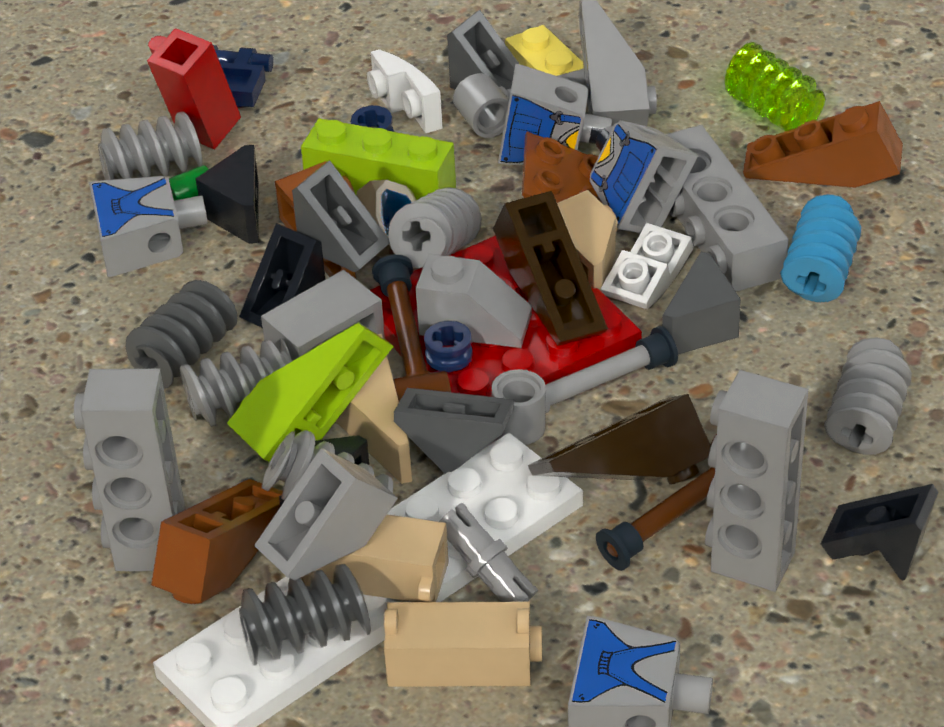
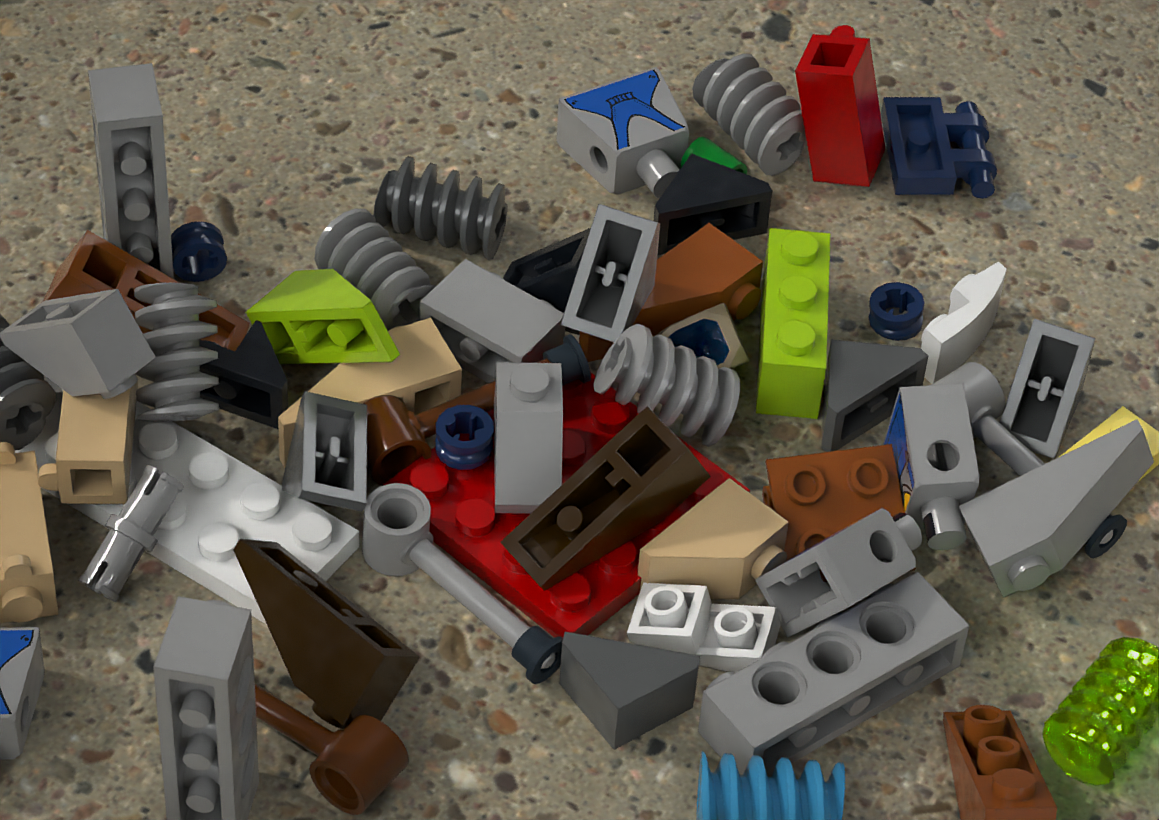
camera: 70 degrees right, 5 degrees up
(471, 153) = (864, 386): none -> dark grey slope

